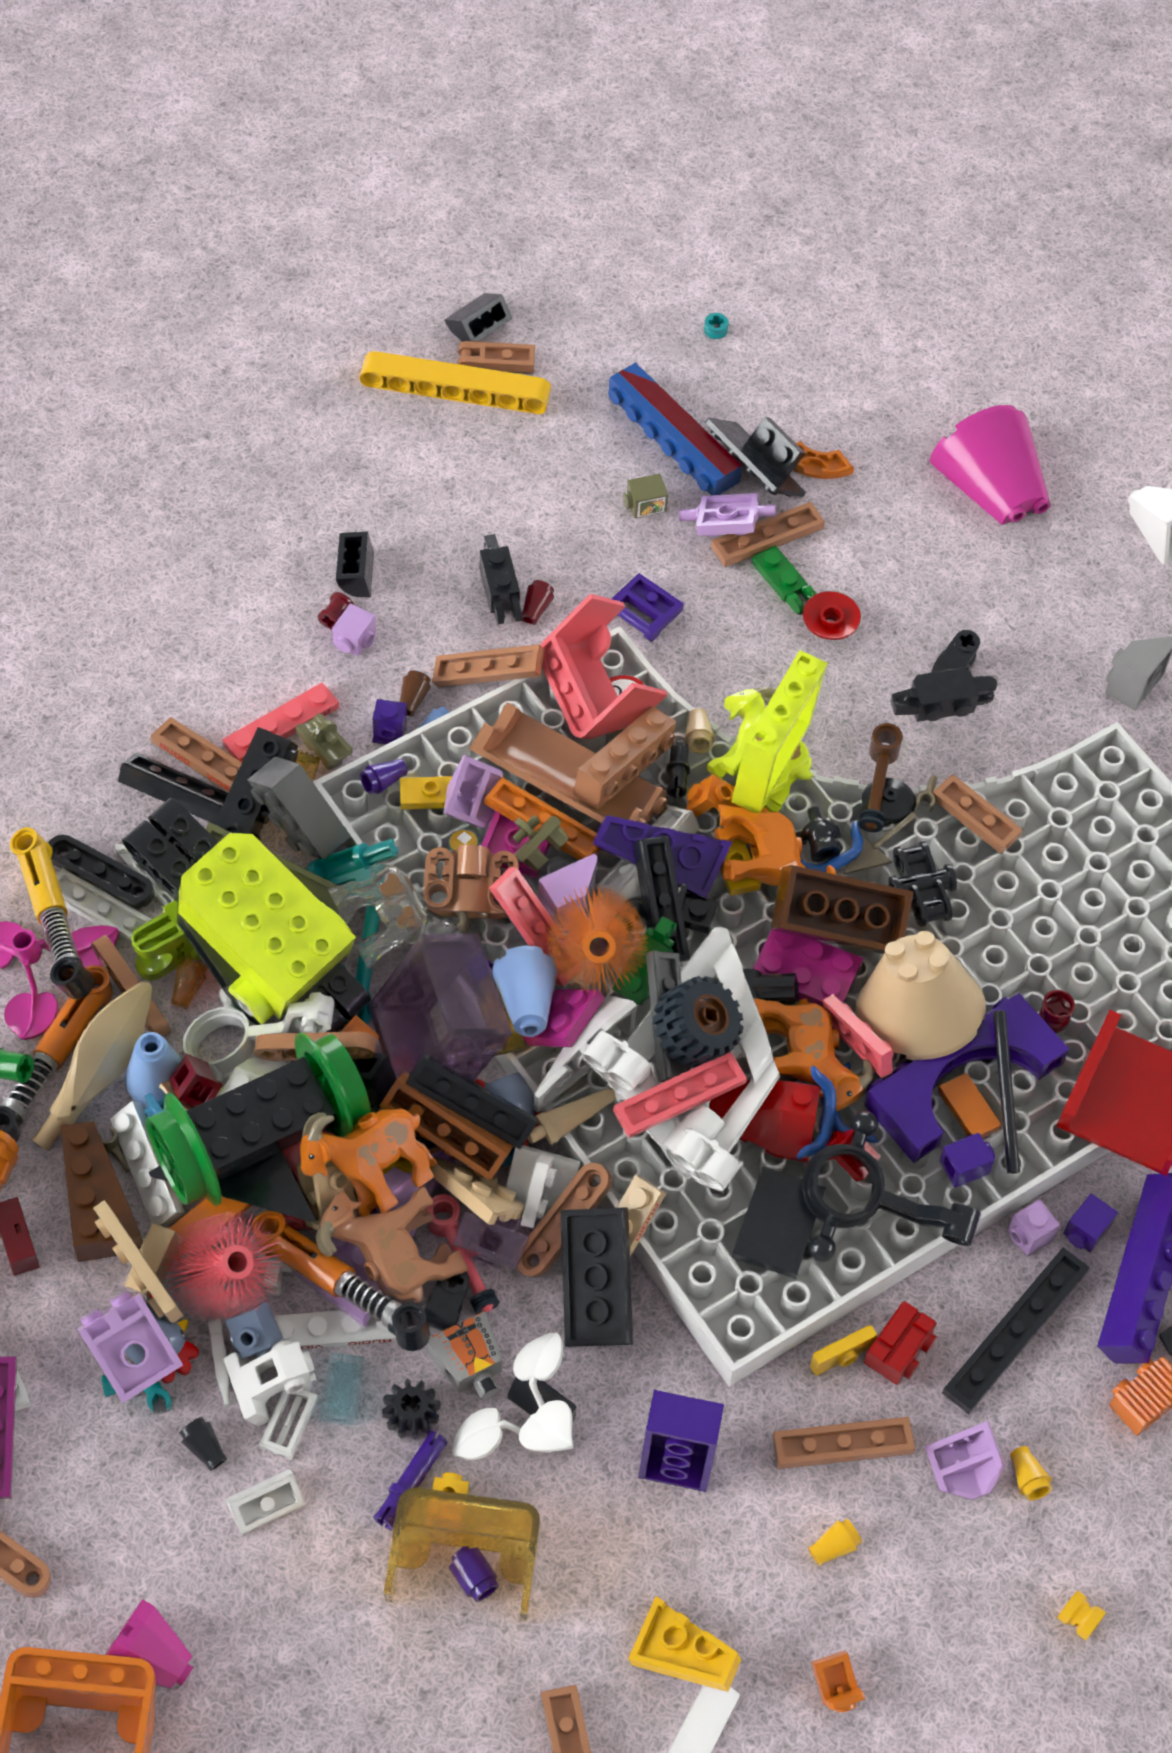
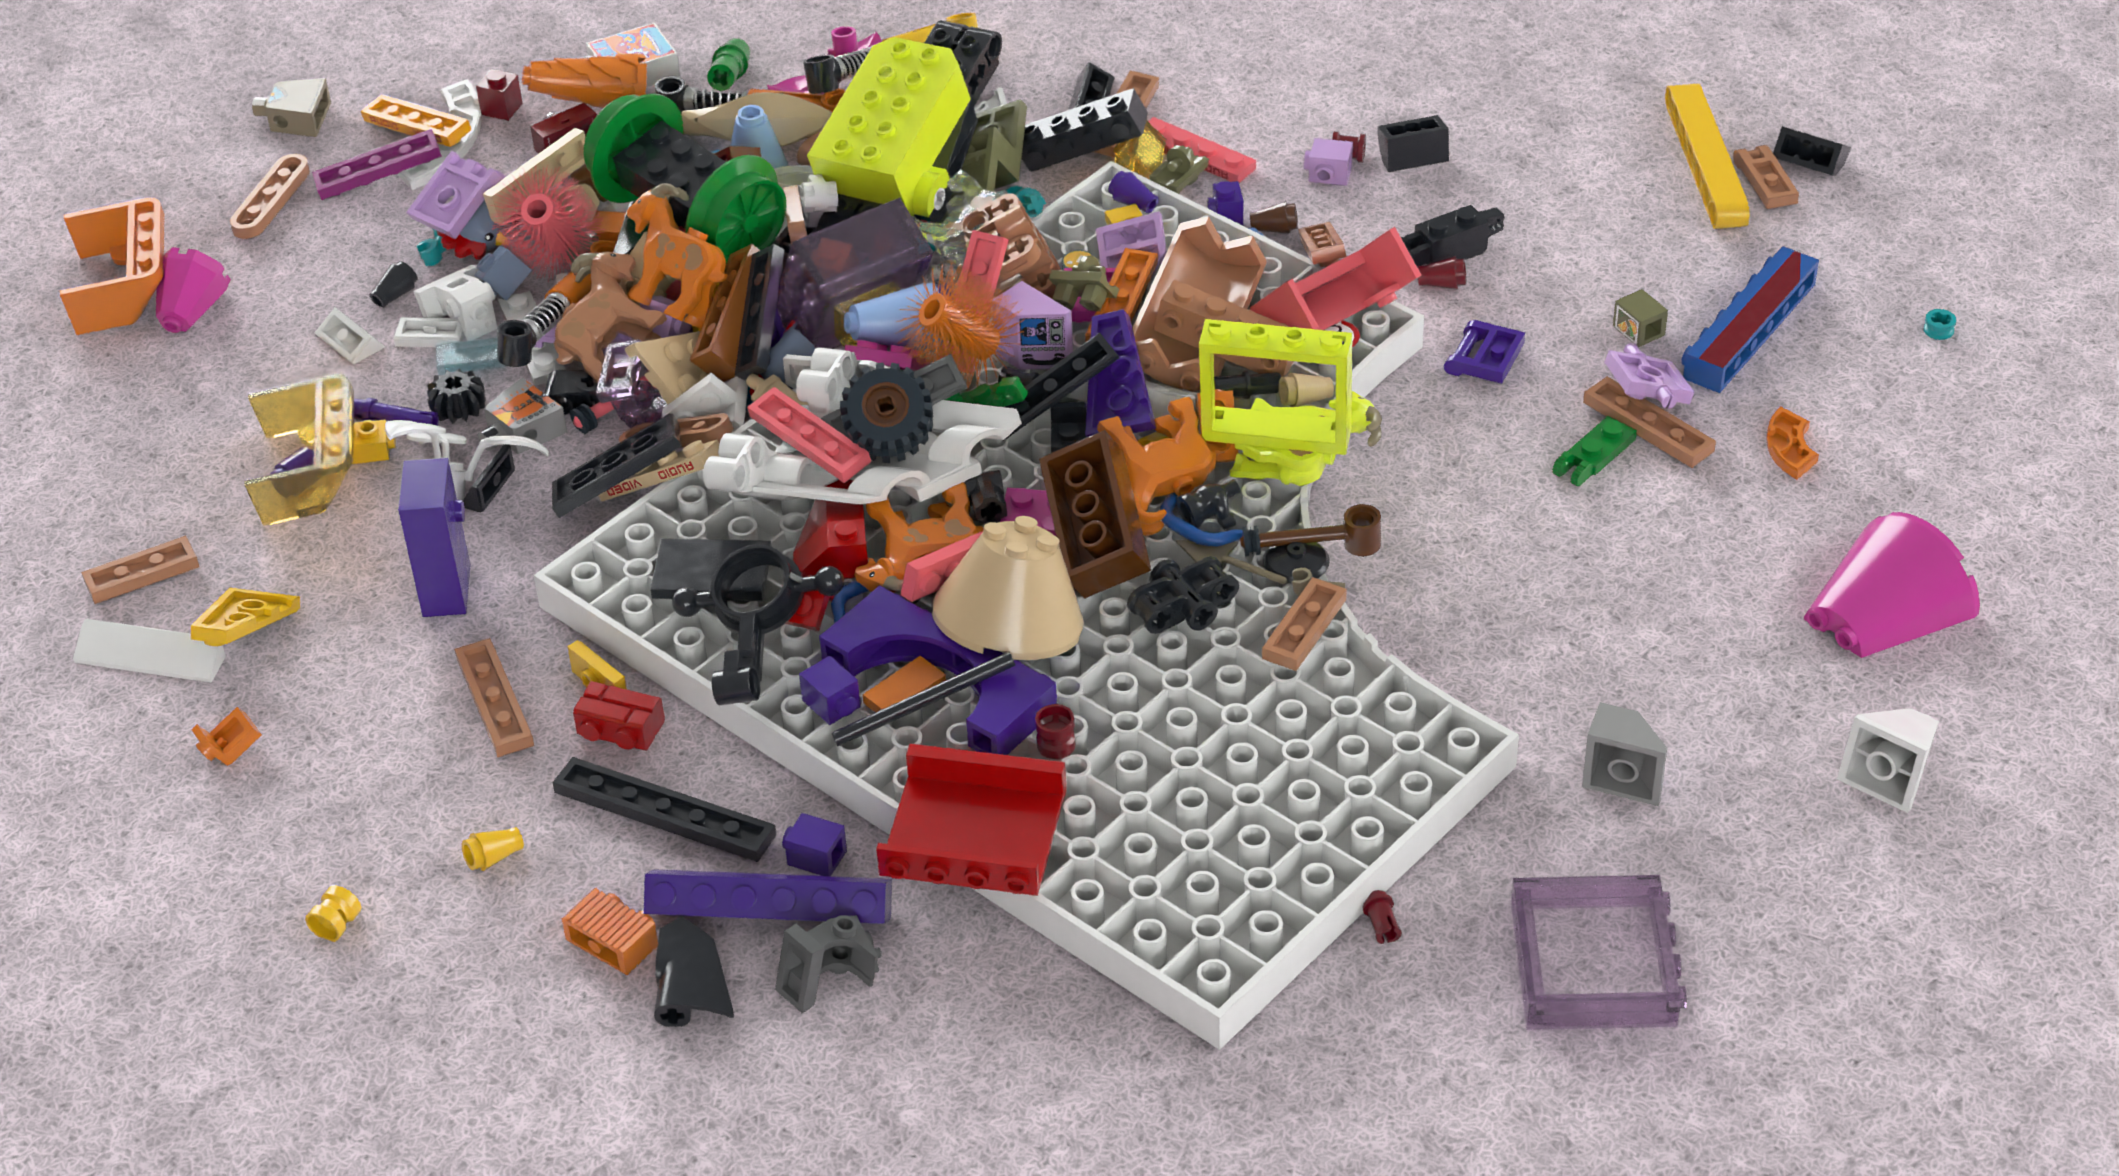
camera: 80 degrees right, 15 degrees down
(298, 808) = (1061, 143): dark grey brick -> none
(767, 453) = (1751, 383): black bracket -> none
(827, 1117) = (849, 562): blue animal -> none
(835, 607) = (1557, 490): red dish -> none
(835, 1542) = (383, 712): yellow cone -> none
(944, 695) = (1459, 565): black hinge -> none
(959, 653) = (1554, 604): black piece -> none
(967, 1462) = (493, 793): lavender slope -> none
(1033, 1227) = (790, 793): lavender brick -> none

